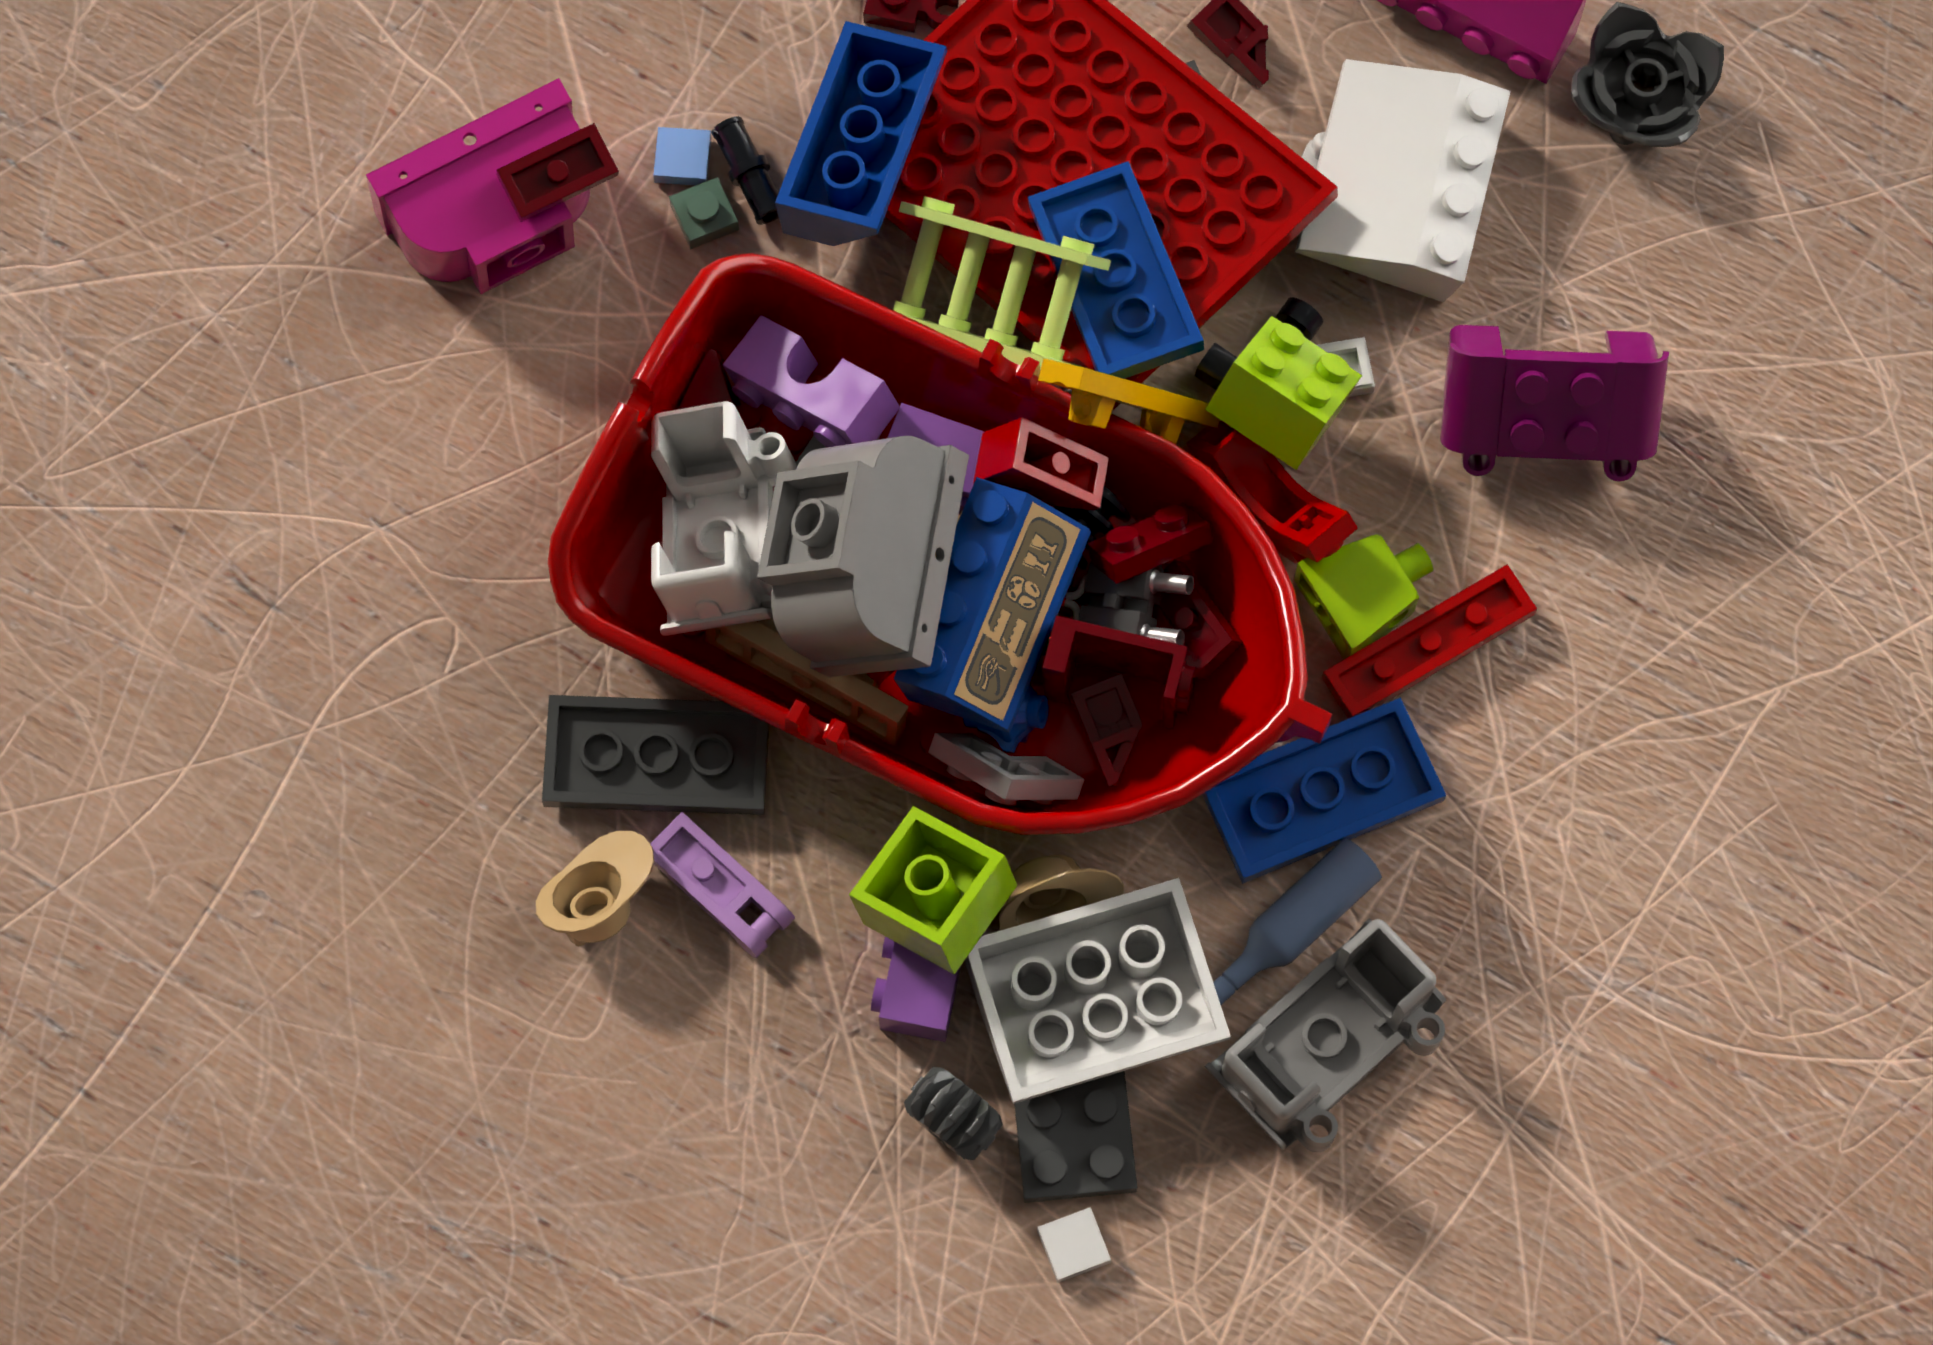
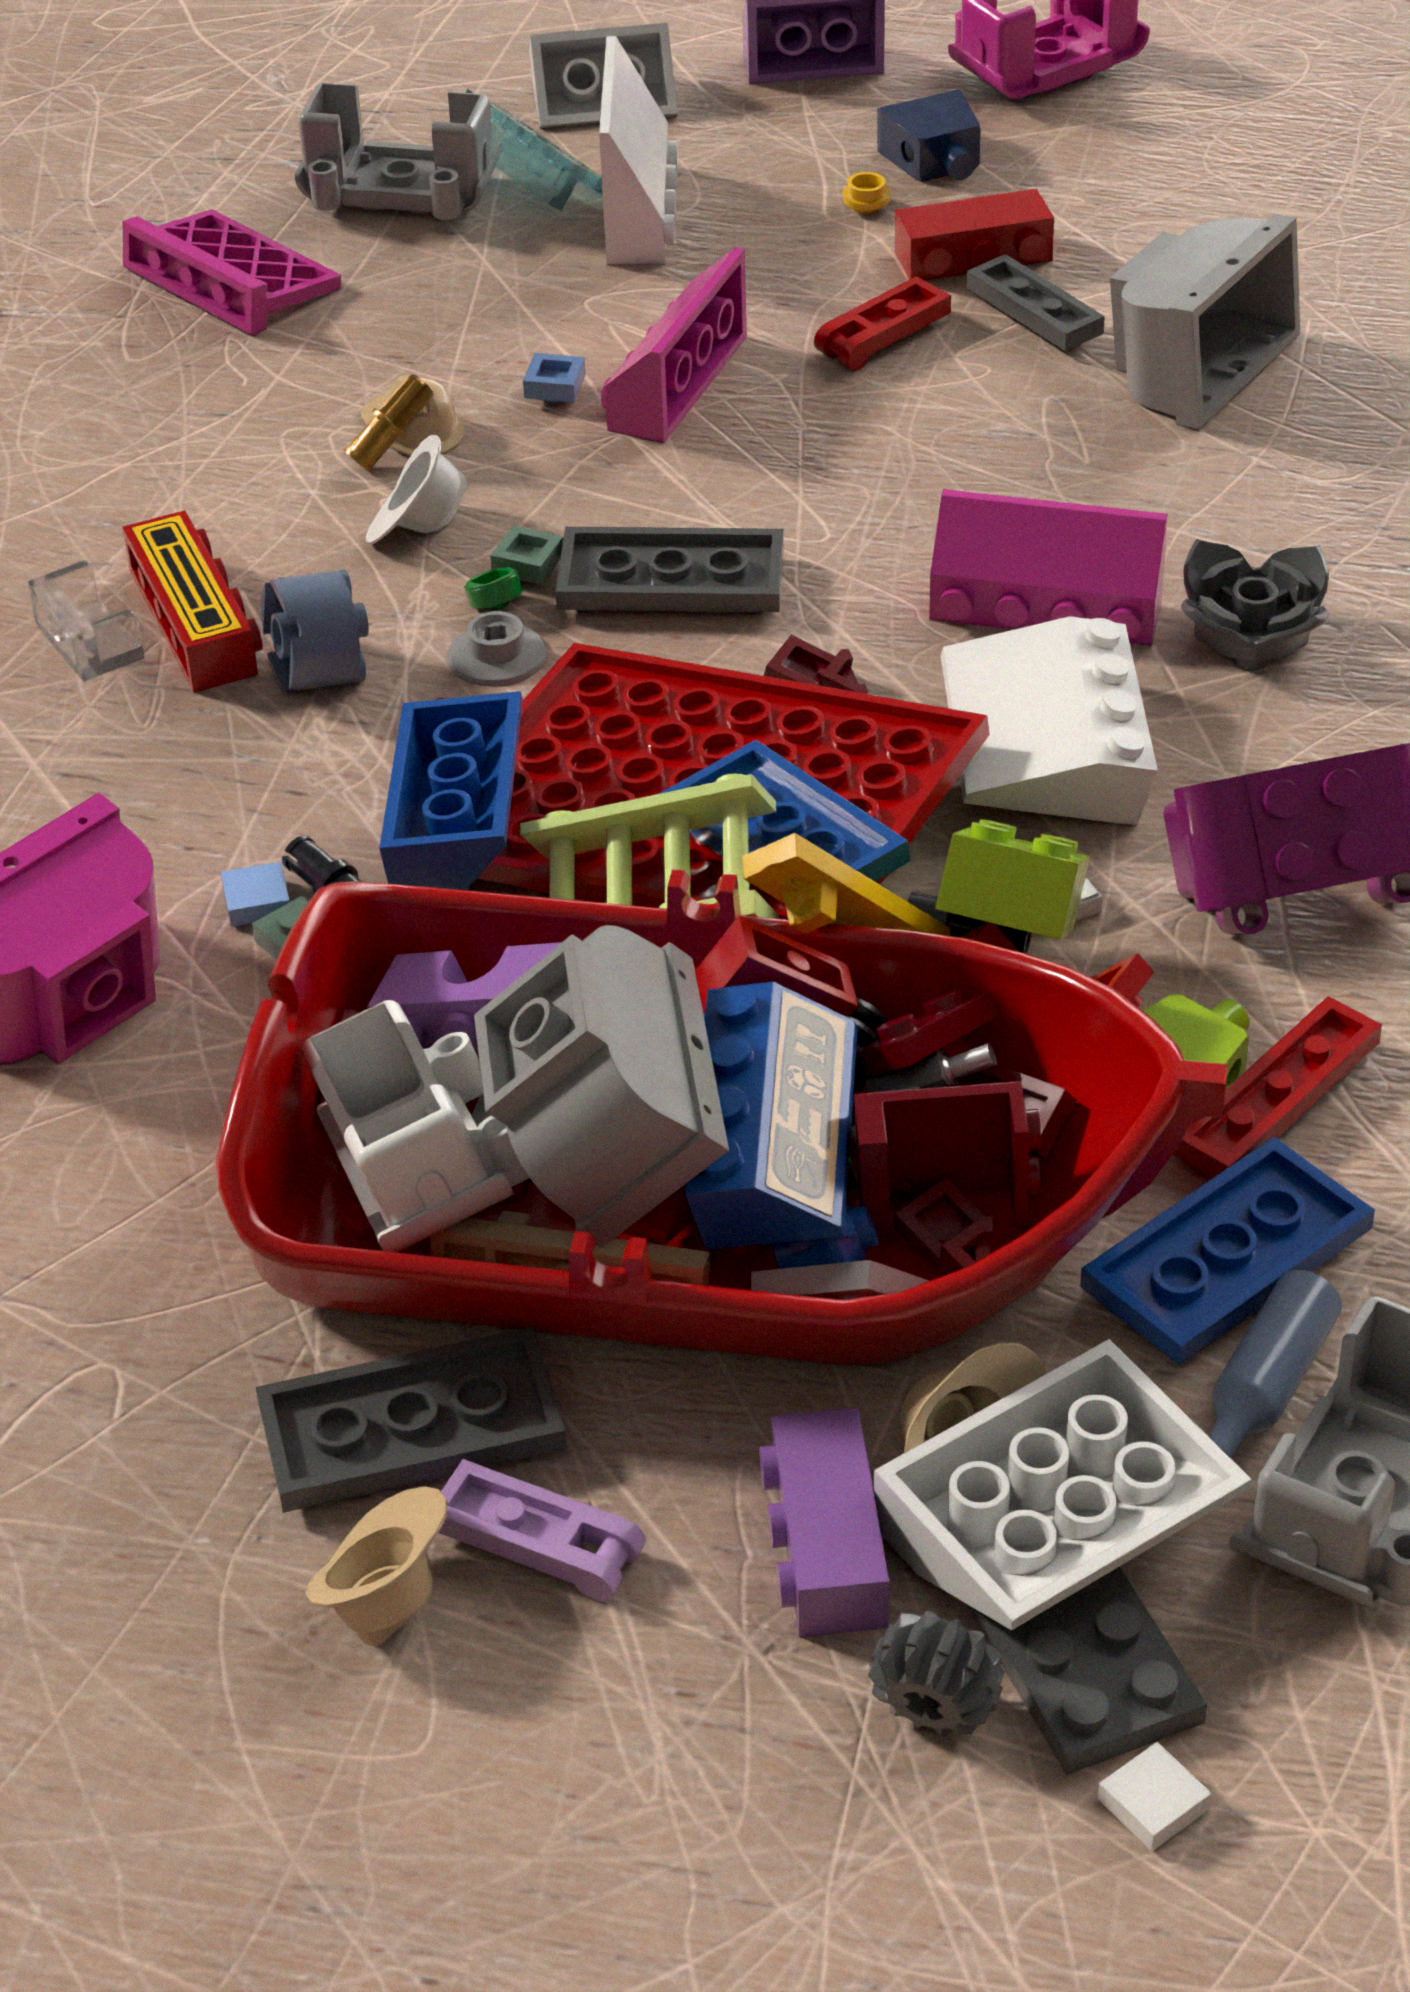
camera: 15 degrees left, 30 degrees down
(557, 172) = (121, 866): dark red plate -> none
(933, 889) = (817, 1409): lime brick -> none

